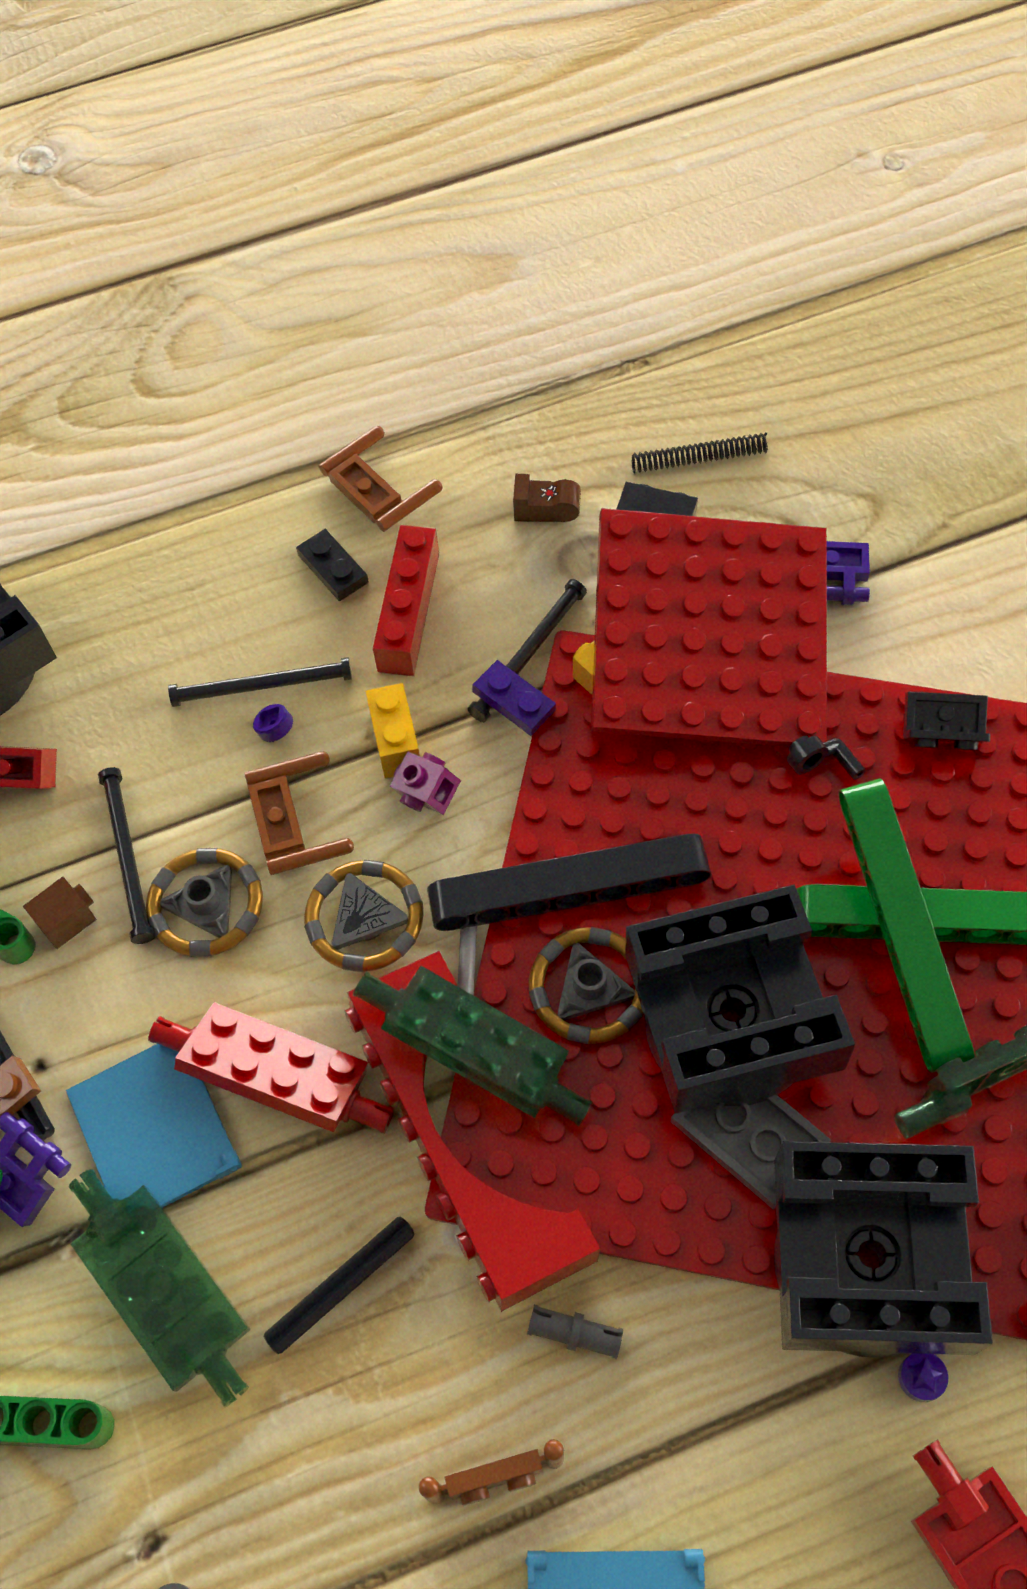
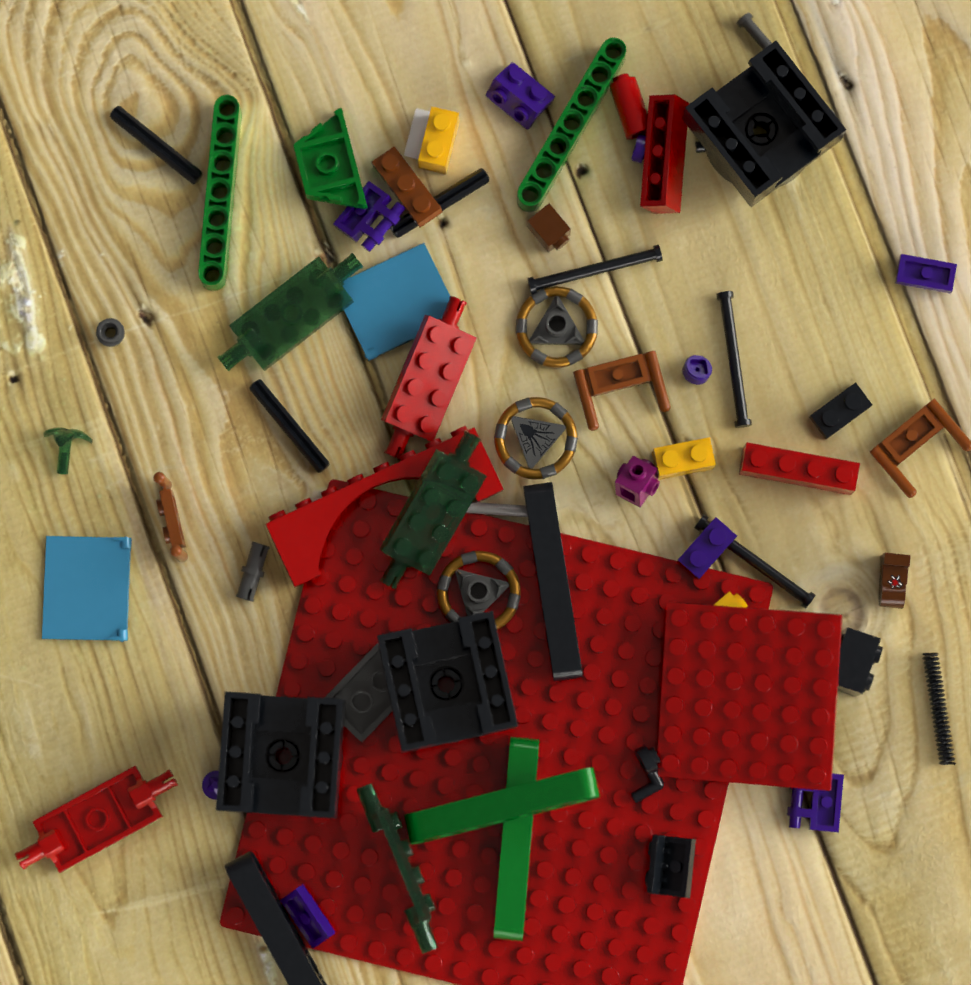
camera: 90 degrees right, 20 degrees up
(162, 479) = (926, 273): none -> dark purple plate

